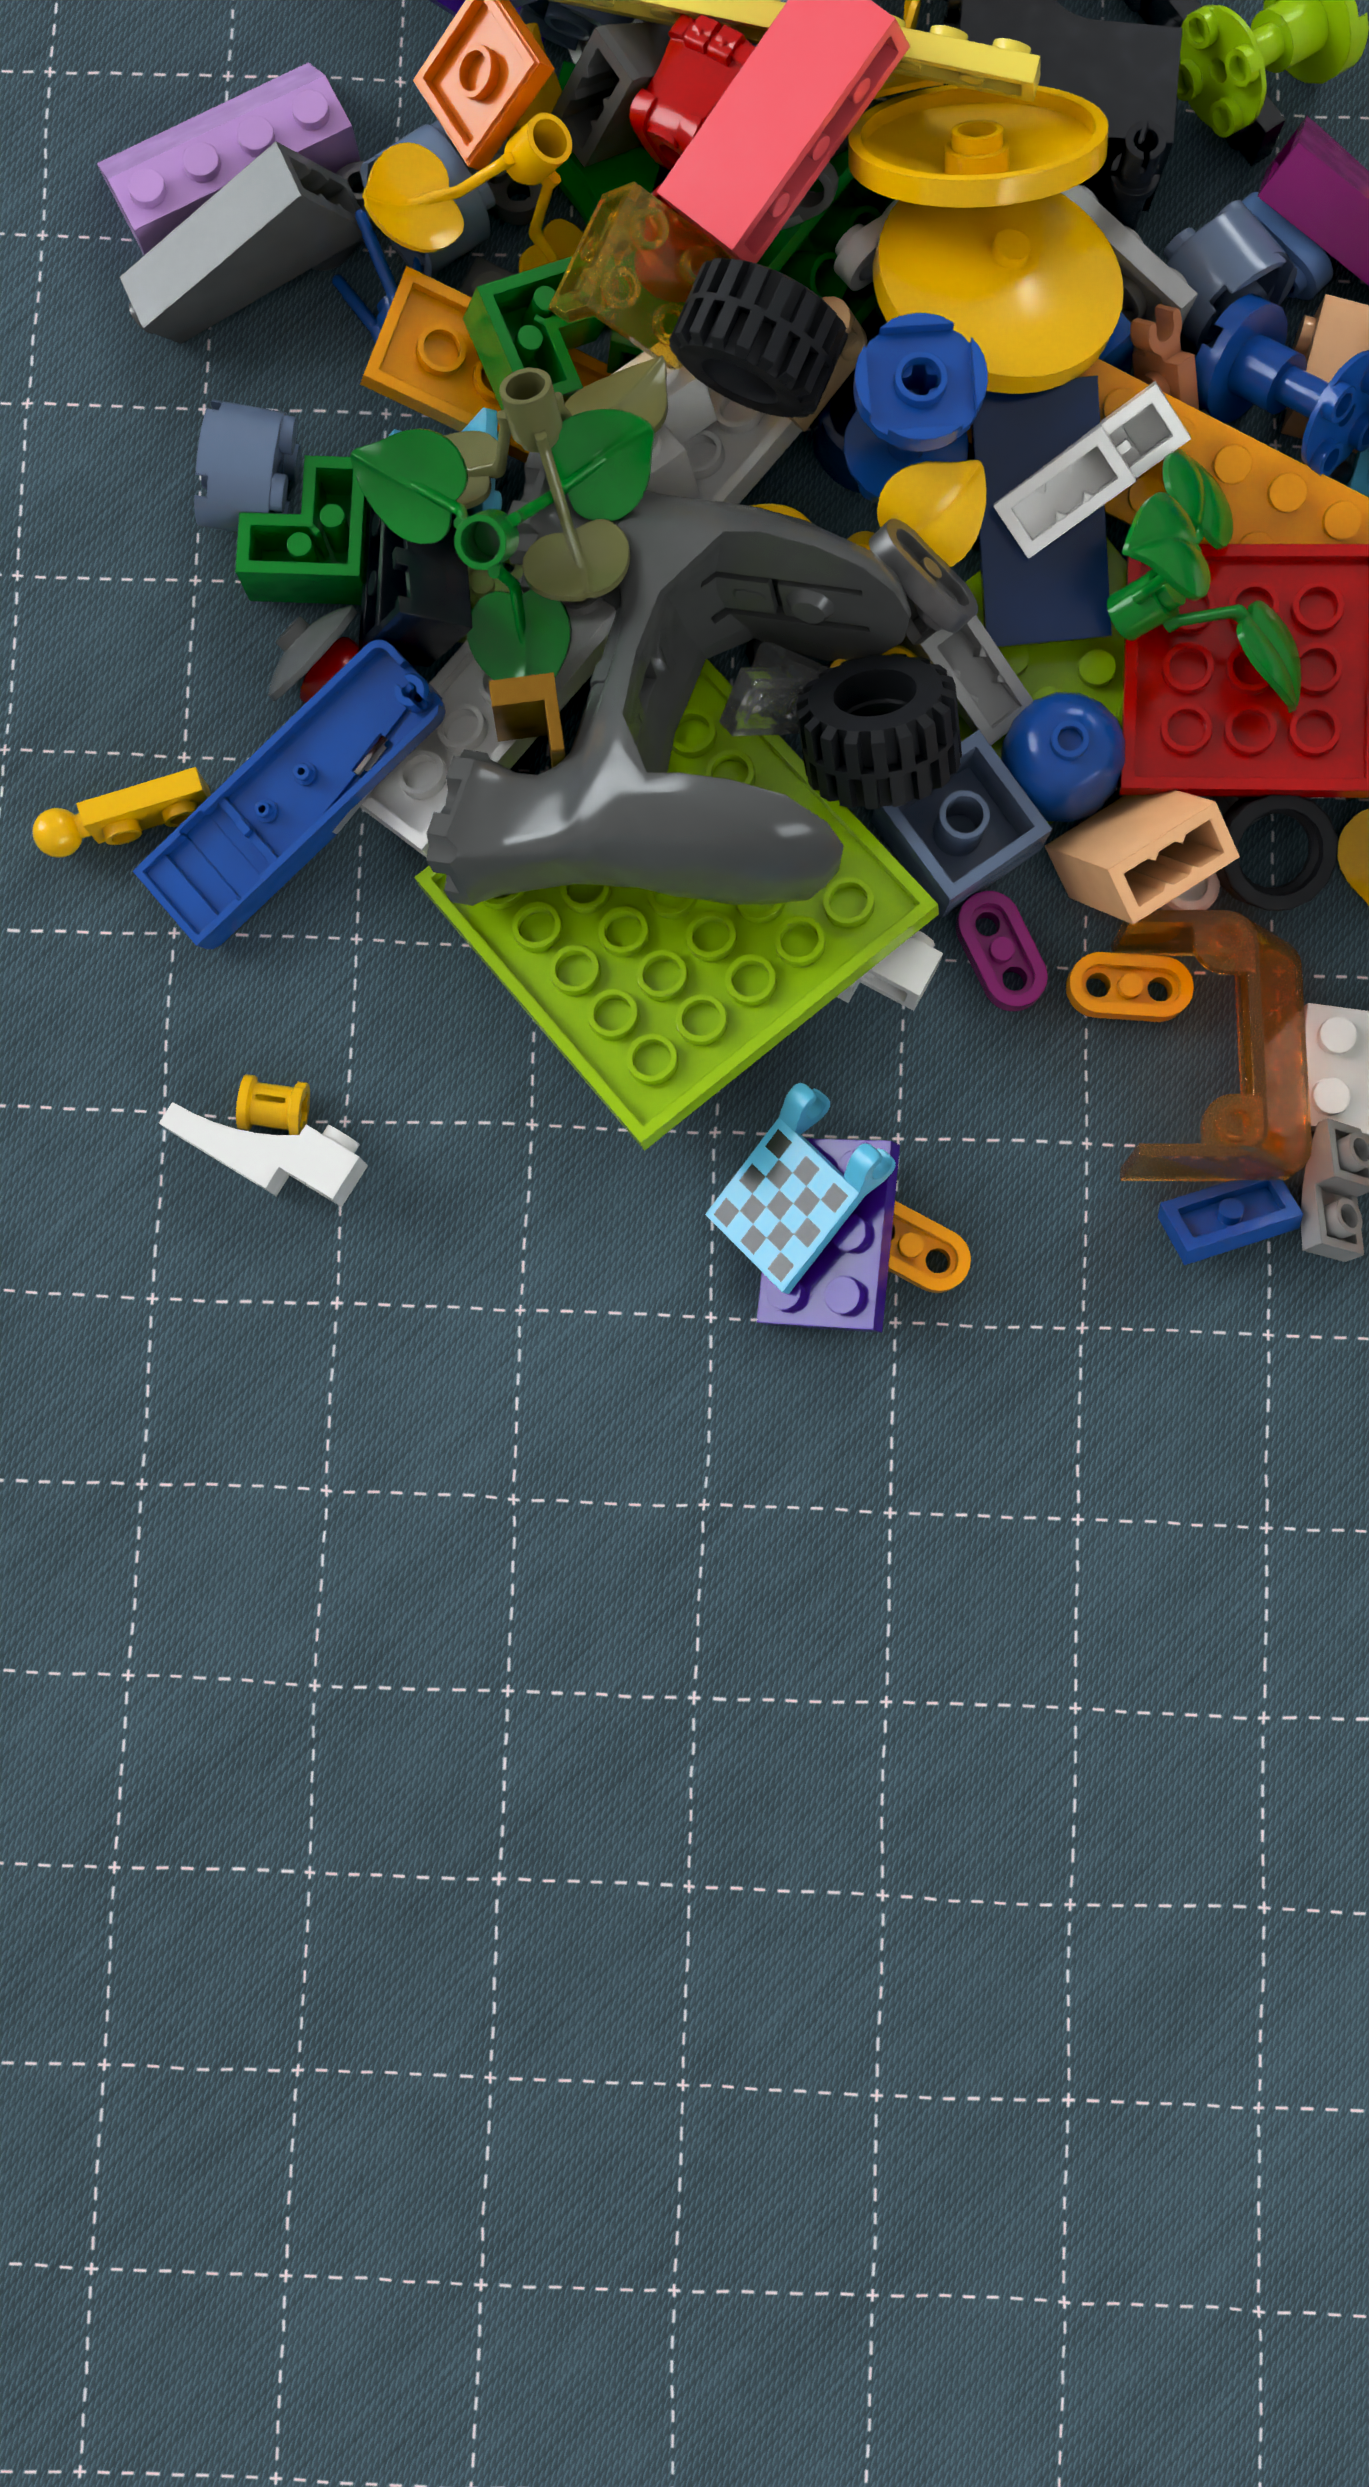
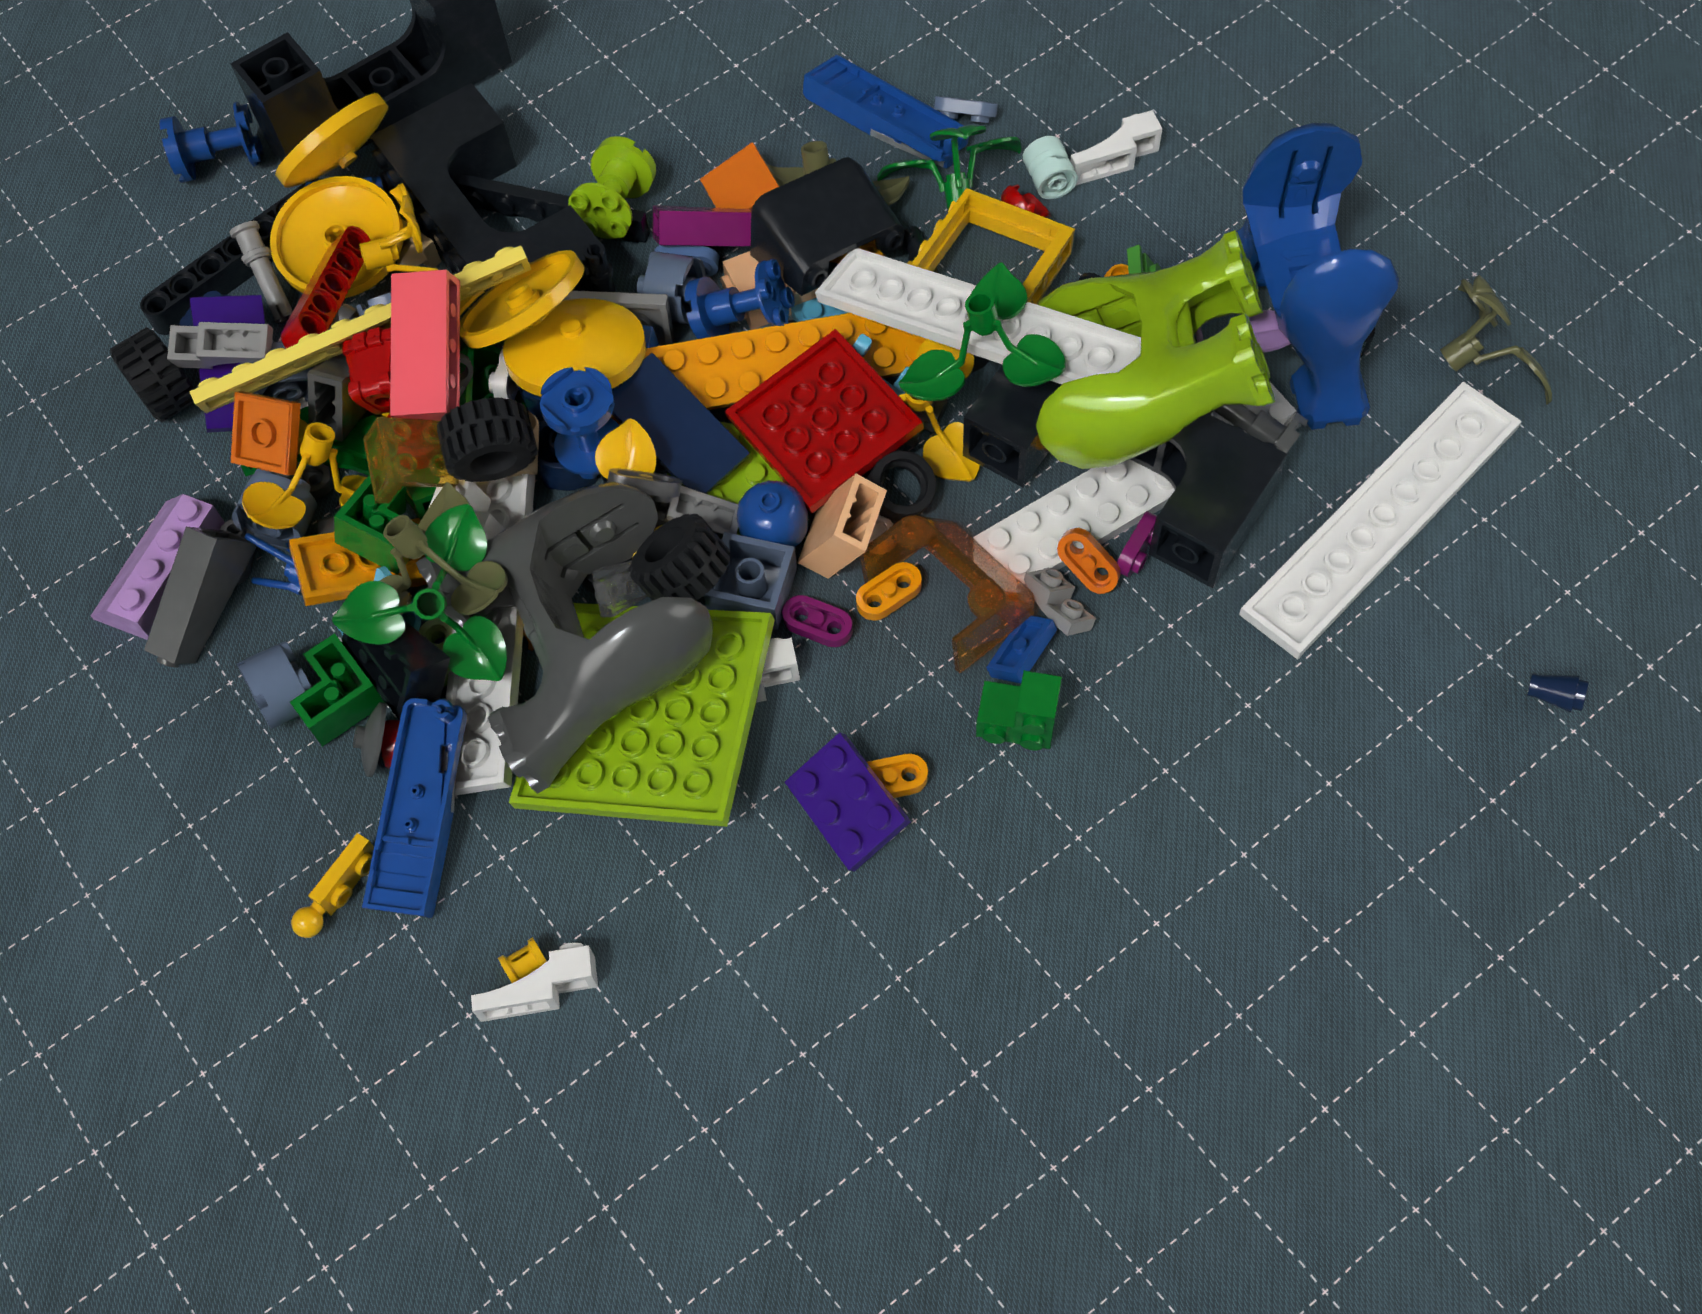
camera: 35 degrees left, 20 degrees down
(528, 709) = (508, 672): pearl gold panel -> none
(790, 1196) = (814, 796): medium azure flag -> none
(1092, 470) = (682, 390): white slope -> none
(1147, 1303) = (1020, 713): none -> green brick
(1161, 357) = (671, 329): nougat plate -> none
(1168, 540) = (745, 375): green plant -> none

